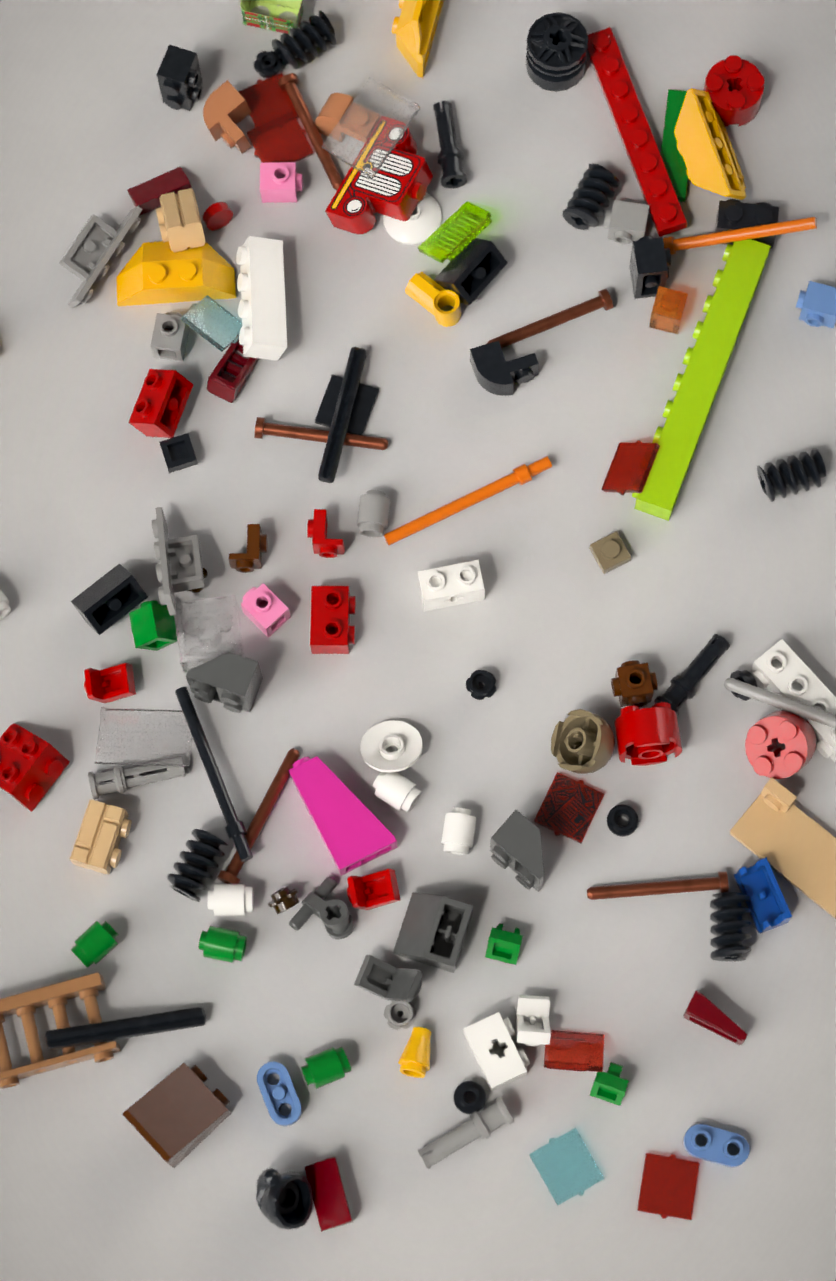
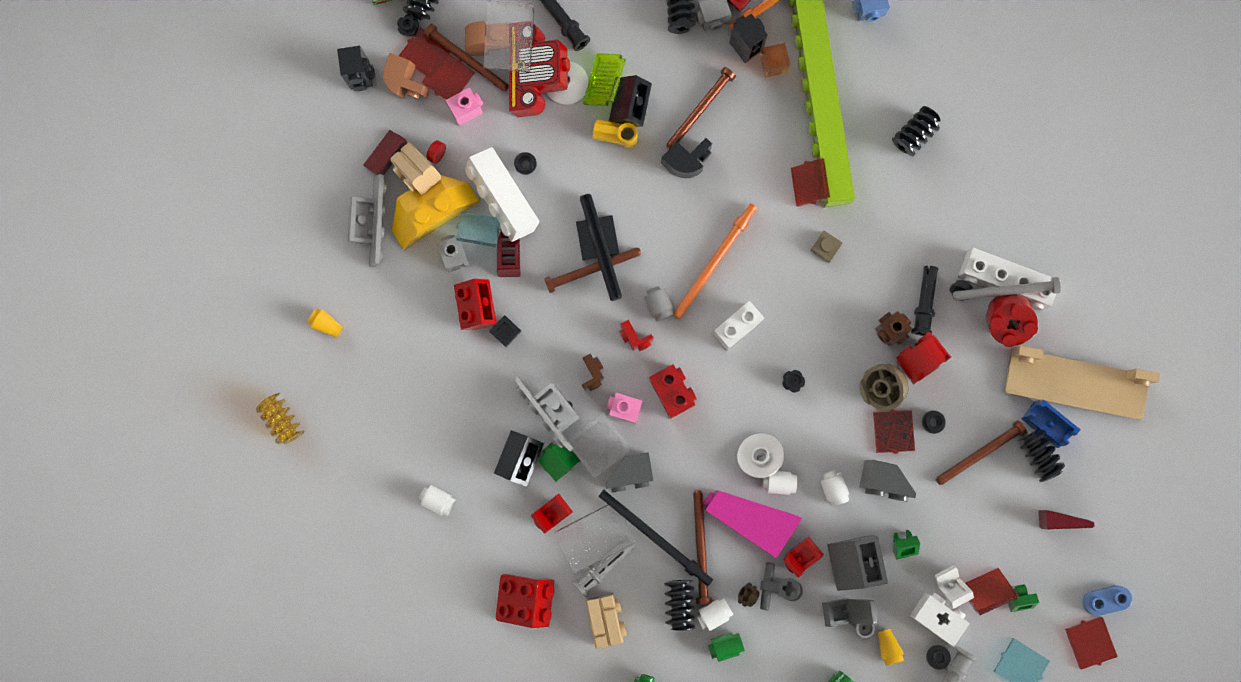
camera: 30 degrees left, 10 degrees up
(311, 272) = (525, 156): none -> black plate

